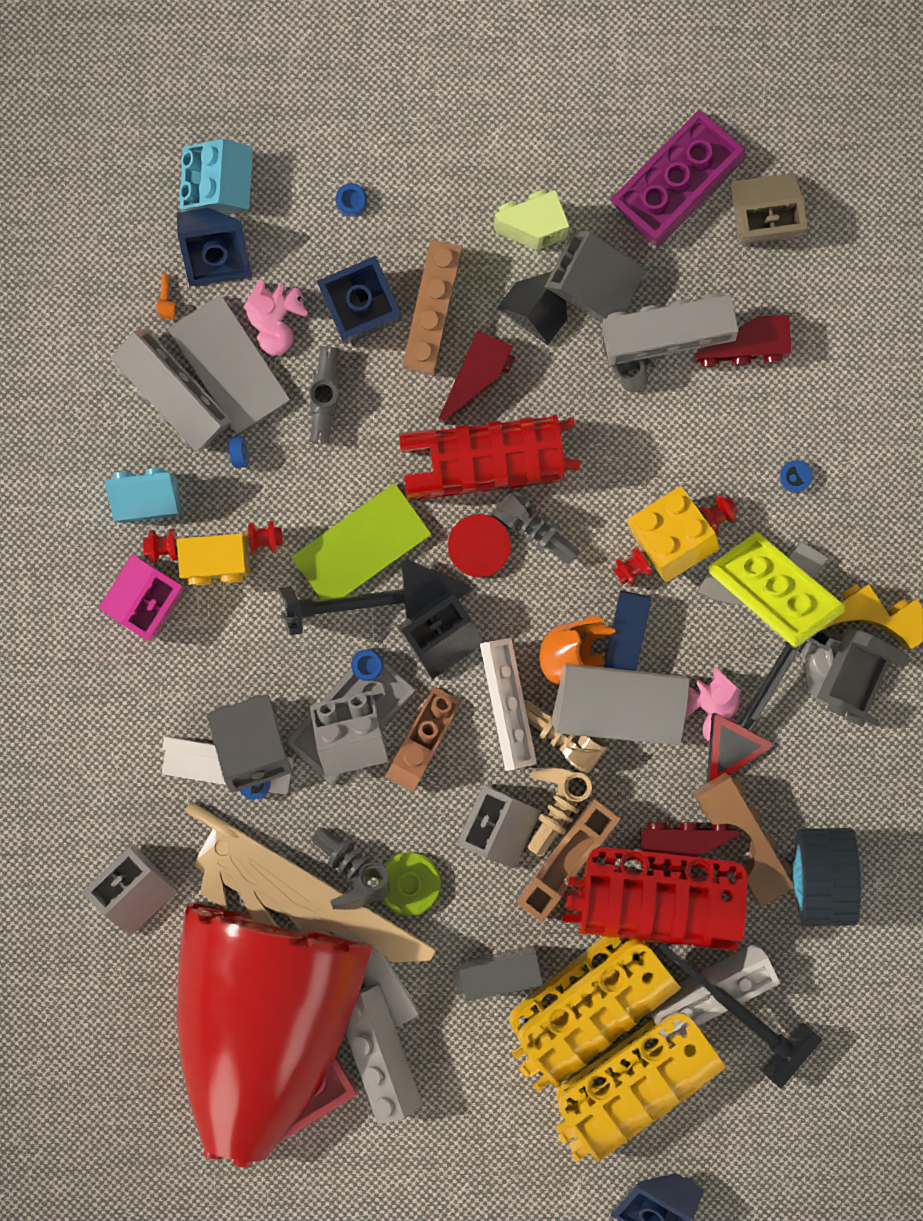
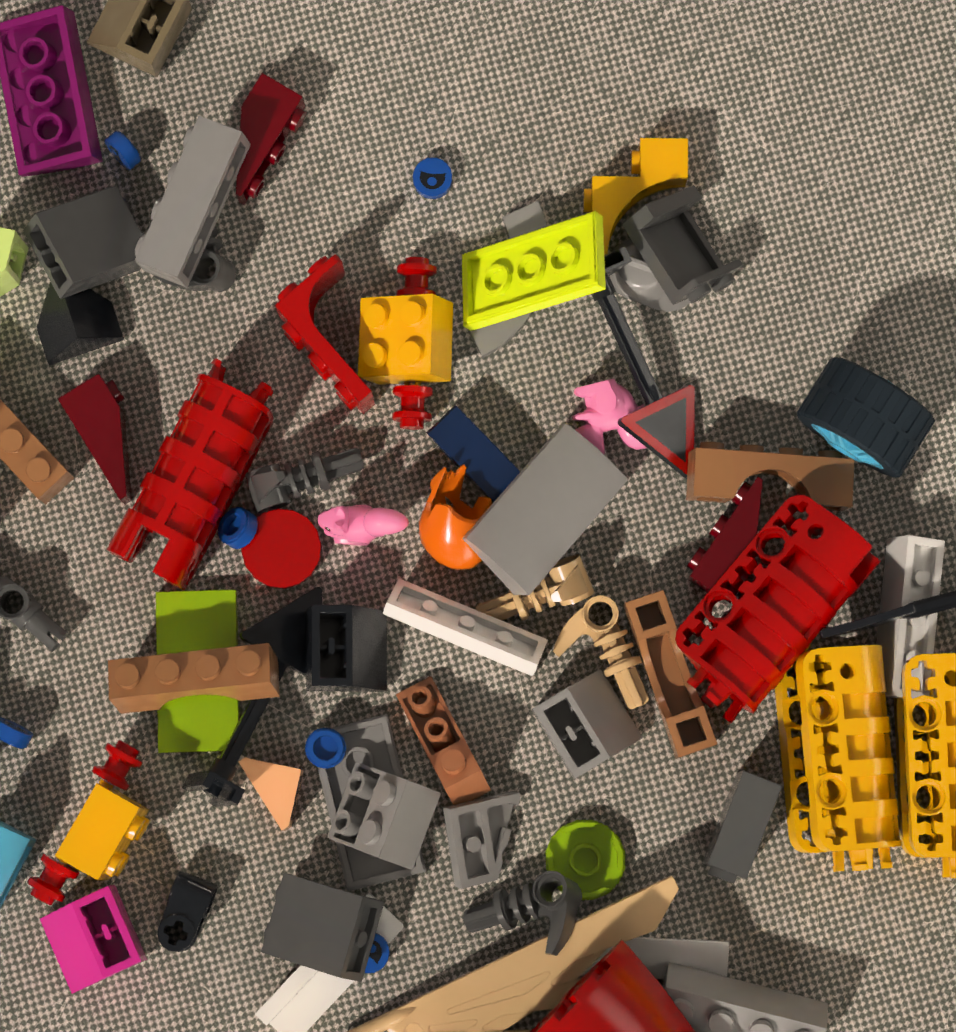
camera: 55 degrees left, 5 degrees down
(205, 645) = (187, 903): none -> black piece
(320, 649) = (276, 786): none -> light nougat slope
(371, 566) = (232, 672): none -> medium nougat arch
(377, 804) = (478, 837): none -> light grey wing
(473, 507) = (237, 527): none -> blue tile
(530, 588) = (360, 523): none -> bright pink animal
(641, 450) = (297, 312): none -> red bracket
(674, 257) = (123, 150): none -> blue tile

